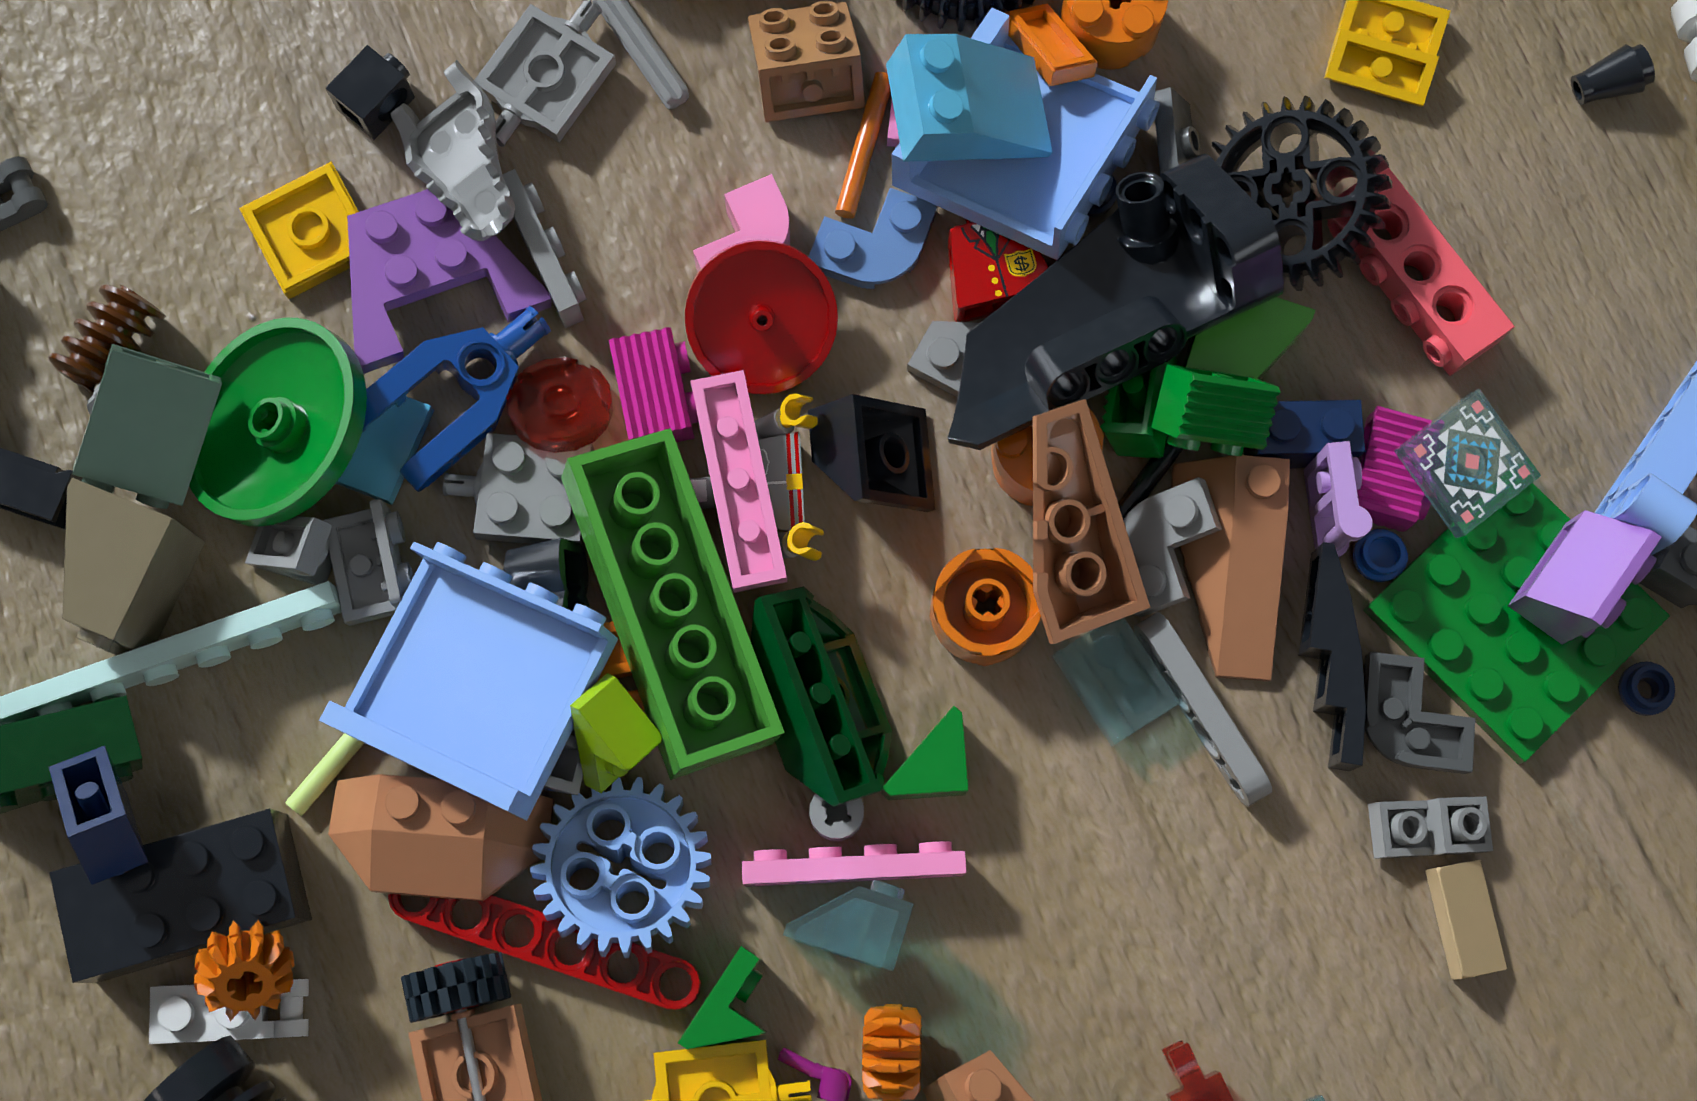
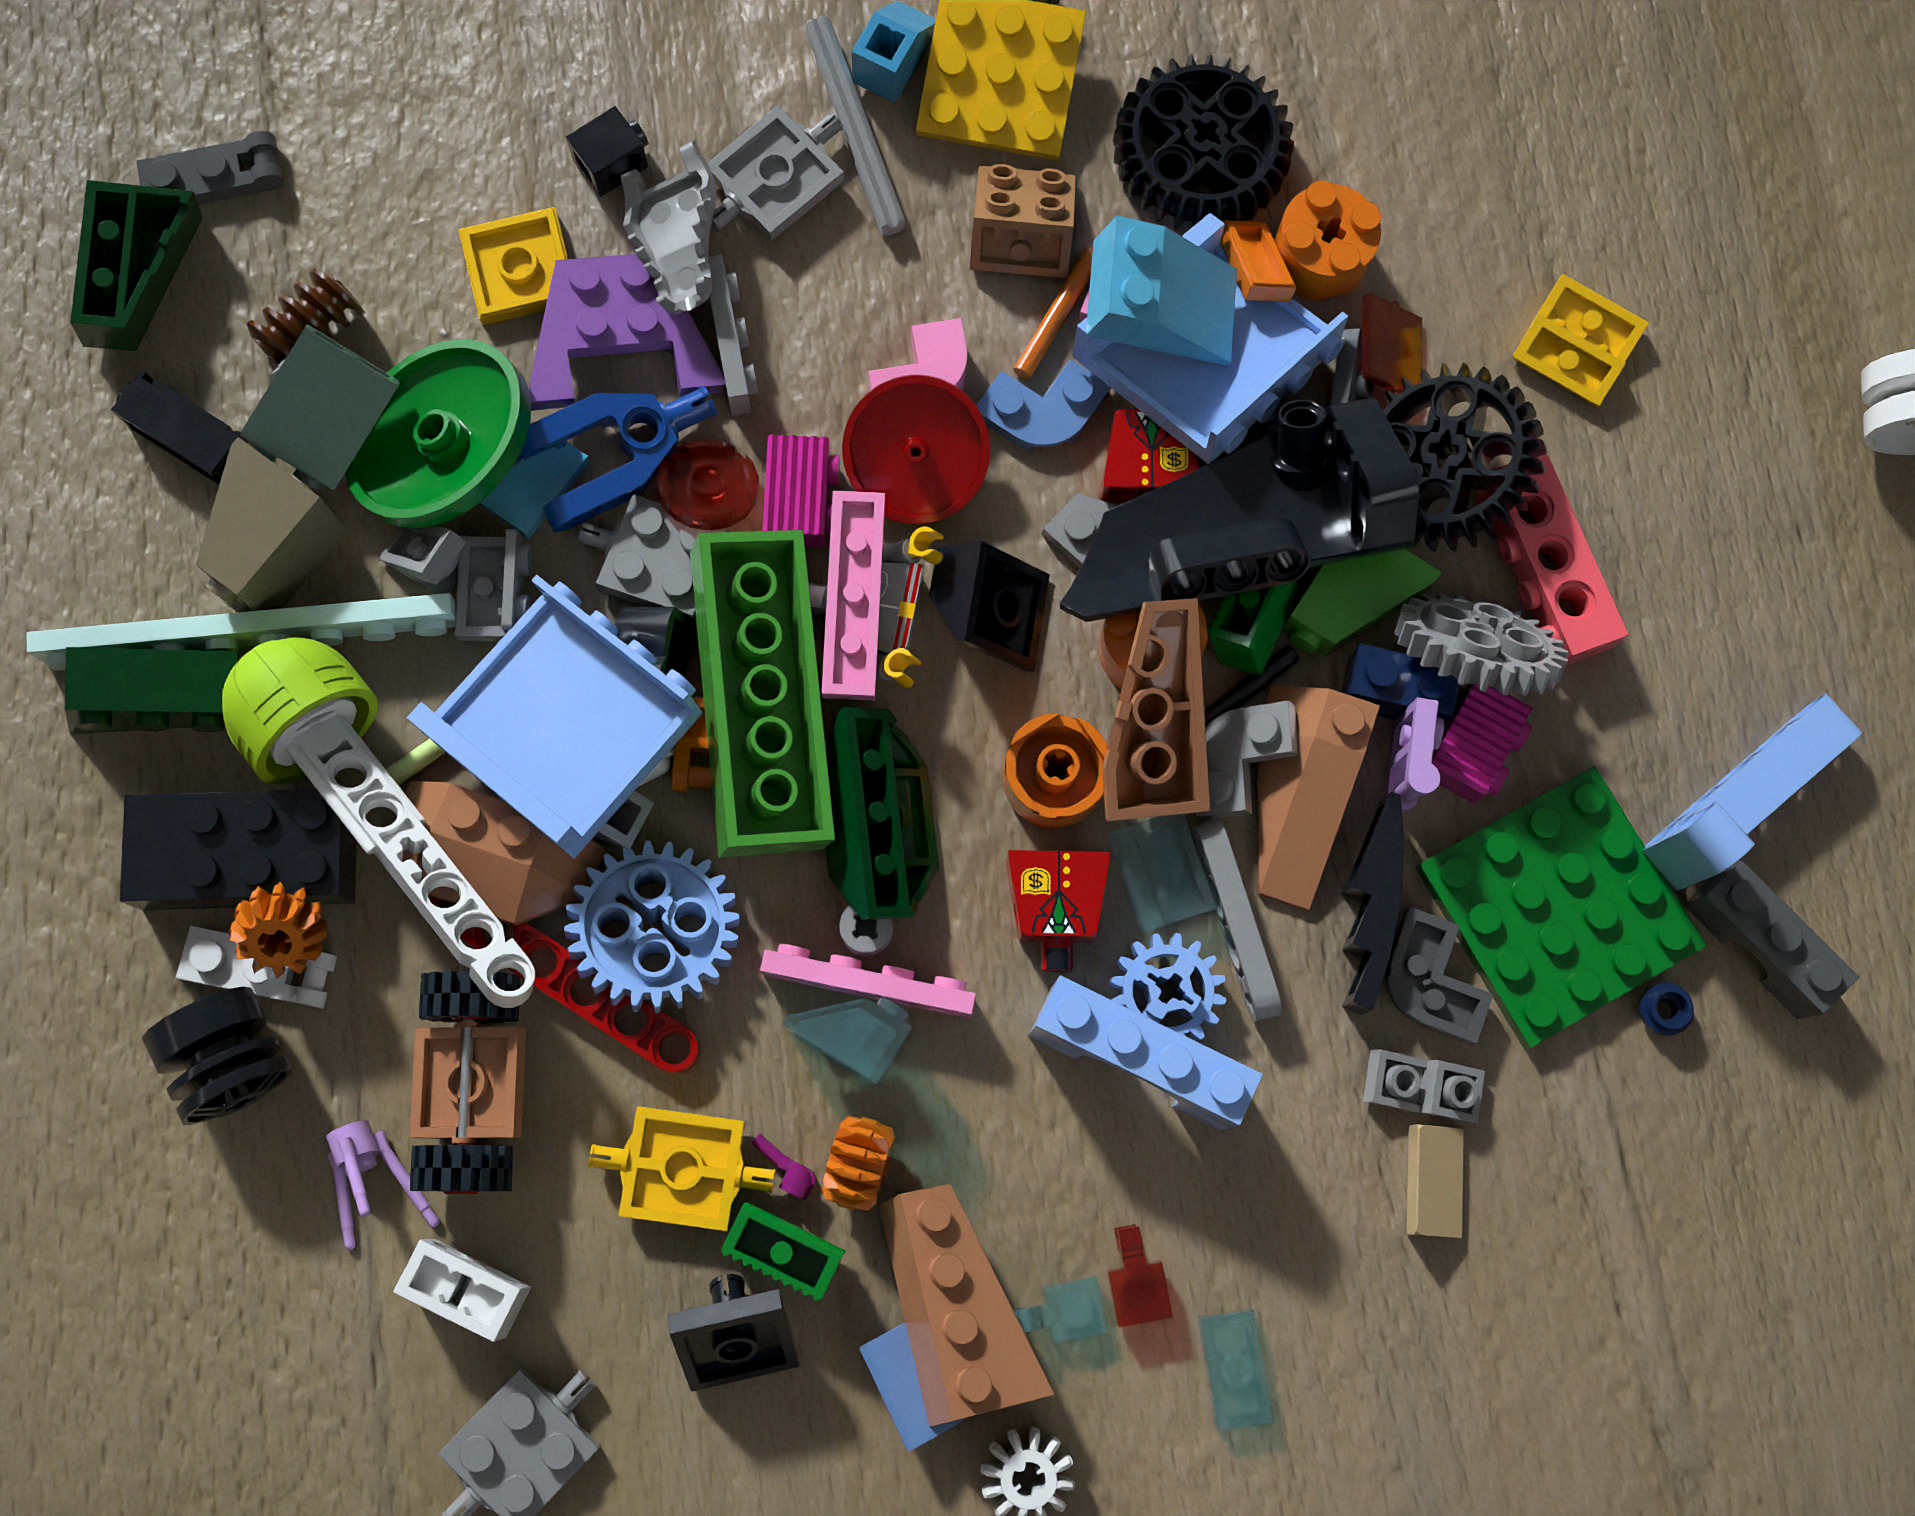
camera: 10 degrees right, 0 degrees up
(97, 815) = (181, 753): dark blue brick -> none
(211, 743) = (302, 714): none -> white piece
(610, 732) = (672, 798): lime slope -> none
(716, 1018) = (703, 1088): green slope -> none
(935, 766) = (969, 908): green slope -> none
(1020, 735) = (1057, 900): none -> red torso
(1102, 856) = (1196, 1076): none -> light blue arch
(1160, 775) = (1146, 976): none -> light blue gear
(1204, 95) = (1390, 343): none -> clear red piece
(1215, 409) = (1319, 639): green brick -> none
(1374, 372) = (1481, 643): none -> light grey gear
(1380, 555) = (1444, 819): blue plate -> none
(1467, 463) = (1548, 752): clear light blue tile -> none
(1585, 575) = (1630, 884): slope -> none
(1616, 75) = (1792, 422): black cone -> none

